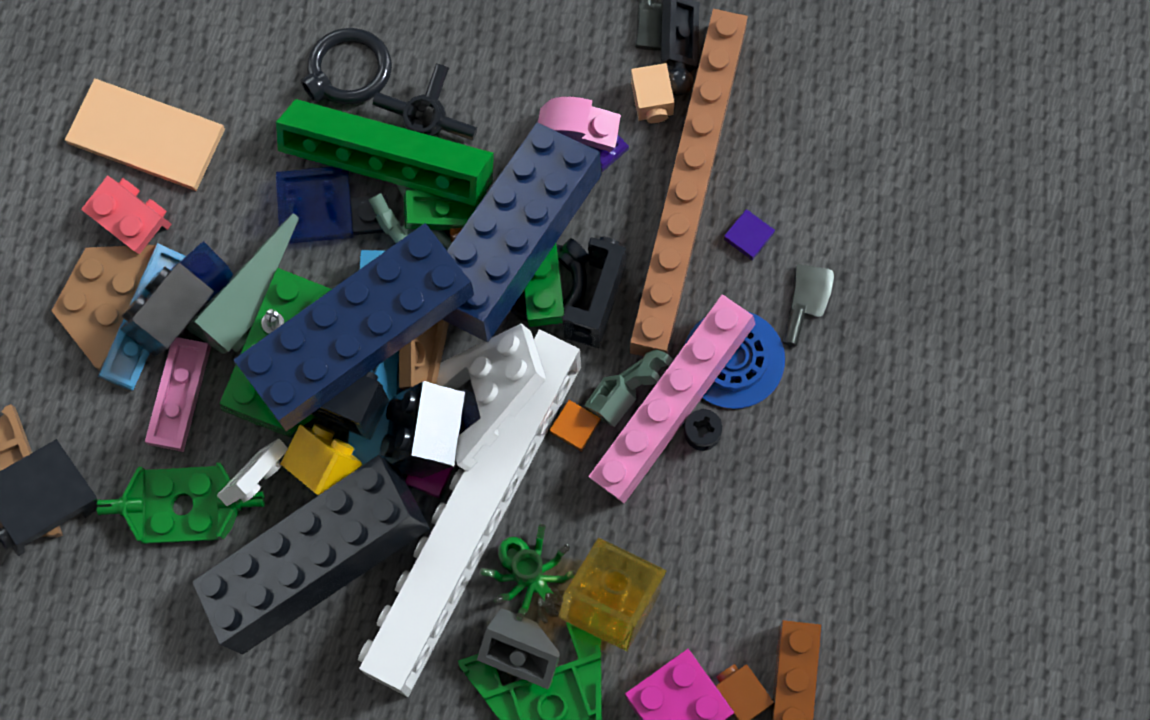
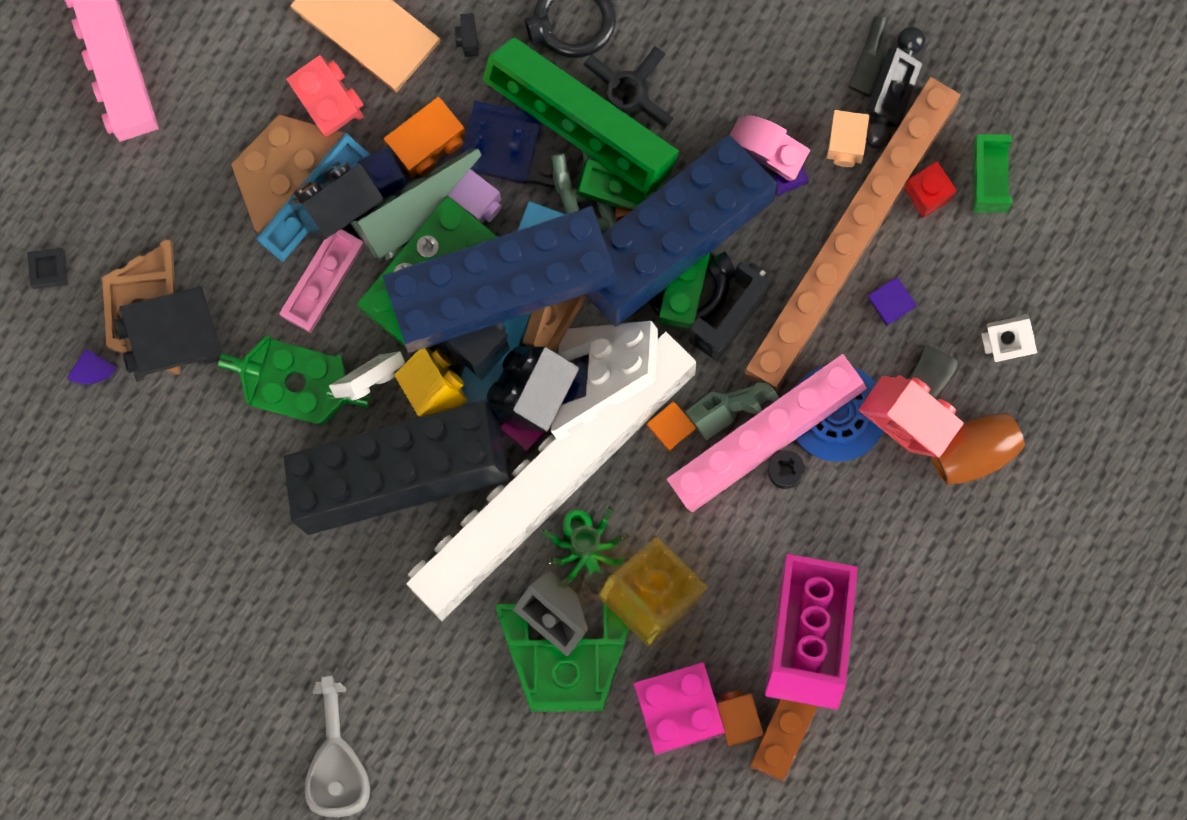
camera: 20 degrees right, 5 degrees up
(239, 223) = (426, 138): none -> orange brick
(248, 113) = (466, 35): none -> black plate
(308, 261) = (477, 197): none -> lavender brick
(749, 116) = (930, 189): none -> red brick
(787, 581) = (812, 631): none -> dark pink brick
(801, 83) = (990, 173): none -> green panel
(809, 334) = (911, 415): none -> brick
(883, 347) = (980, 449): none -> dark orange piece
(890, 231) = (1021, 345): none -> white brick

